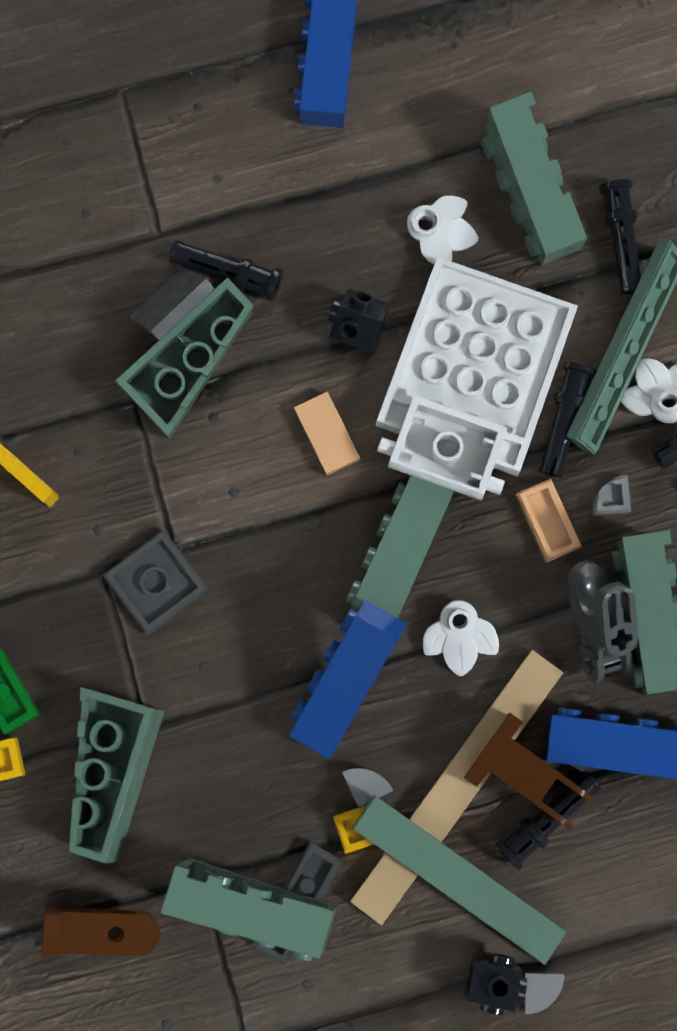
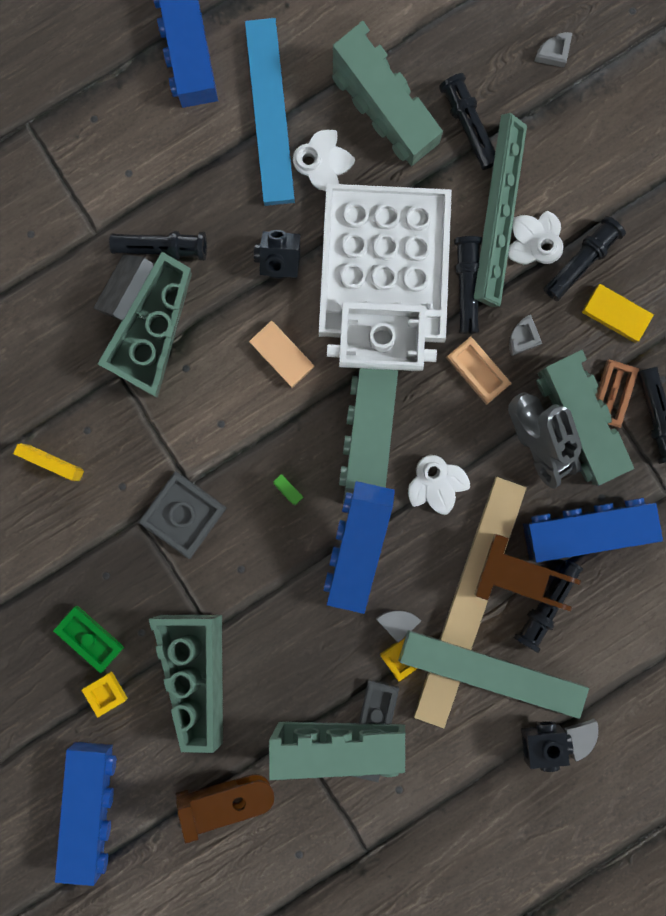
camera: 20 degrees left, 5 degrees up
(286, 590) = (288, 490): none -> bright green tile
(397, 158) = (269, 111): none -> dark azure tile

